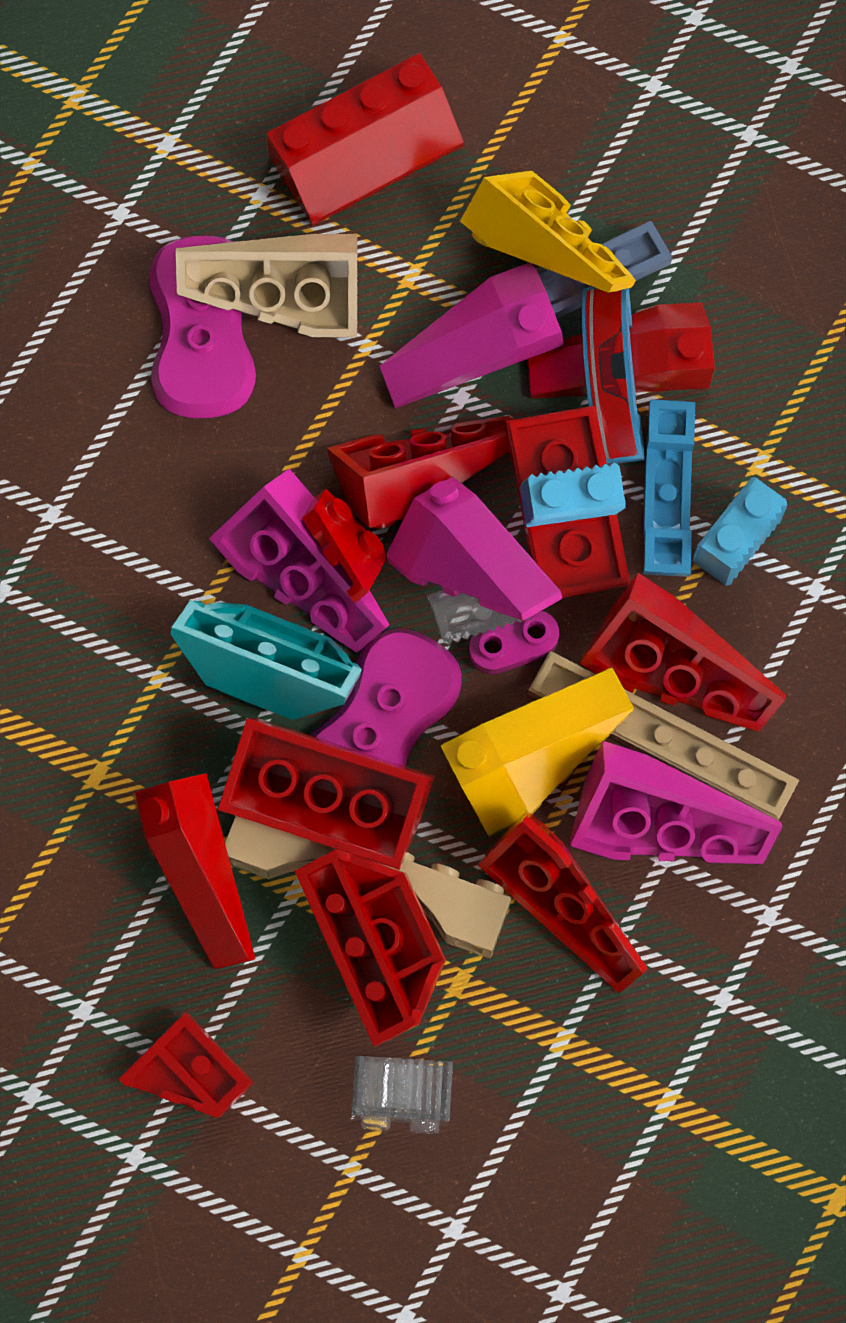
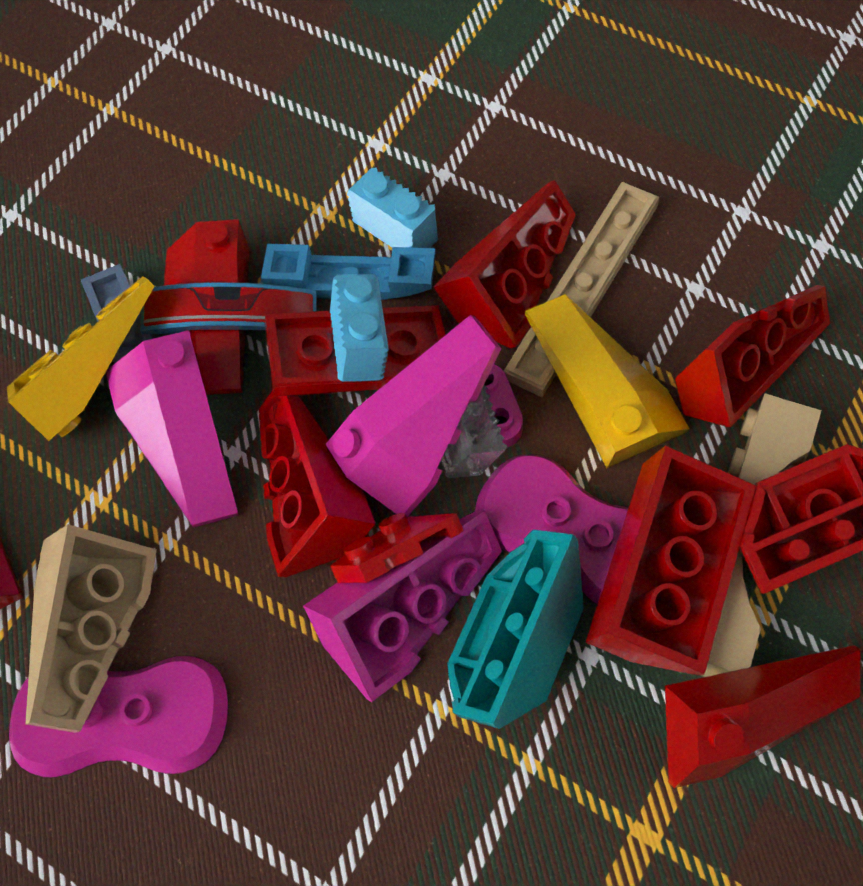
camera: 80 degrees left, 10 degrees down
(652, 809) = (655, 287): dark pink wedge -> none

